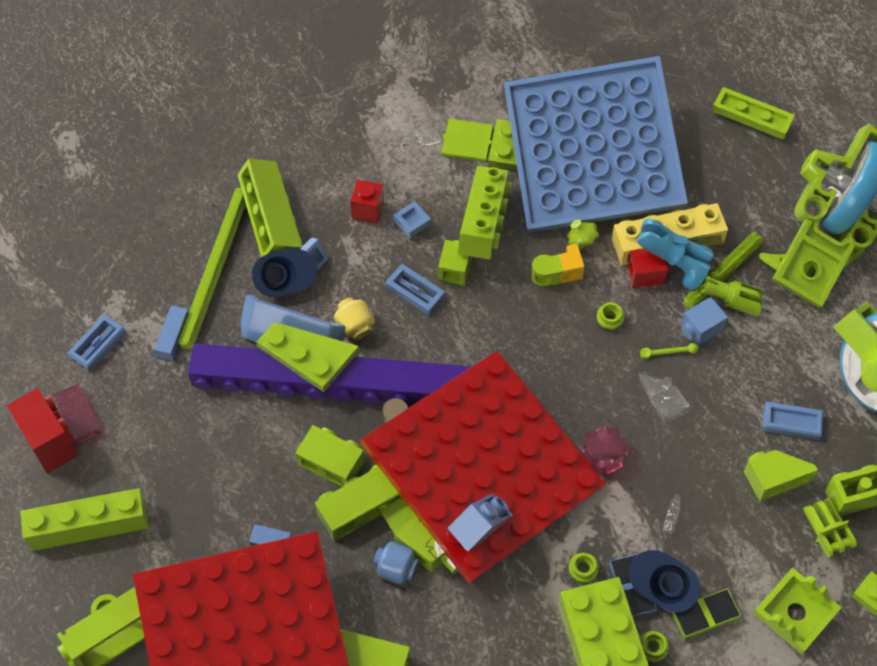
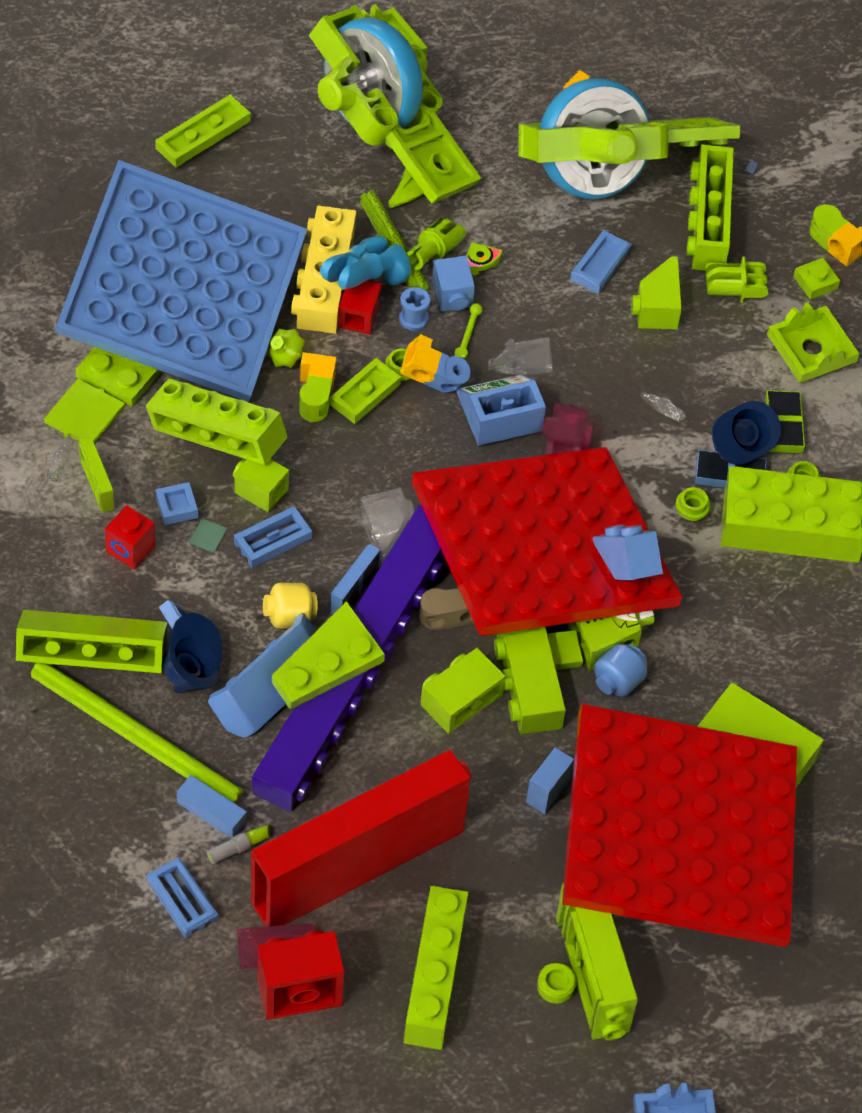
camera: 75 degrees left, 5 degrees down
(150, 361) = (239, 843): none -> light grey piece
(155, 426) = (359, 840): none -> red brick
(394, 350) = (356, 578): none -> medium blue tile
(400, 251) = (207, 535): none -> sand green sticker
(412, 163) = (96, 474): none -> lime tile
(456, 349) = (384, 519): none -> clear slope
(572, 299) = (365, 390): none -> lime plate
(601, 393) = (503, 408): none -> medium blue slope
(612, 344) = (434, 367): none -> leg
(664, 304) = (414, 304): none -> medium blue bush
(743, 333) = (482, 257): none -> lime tile

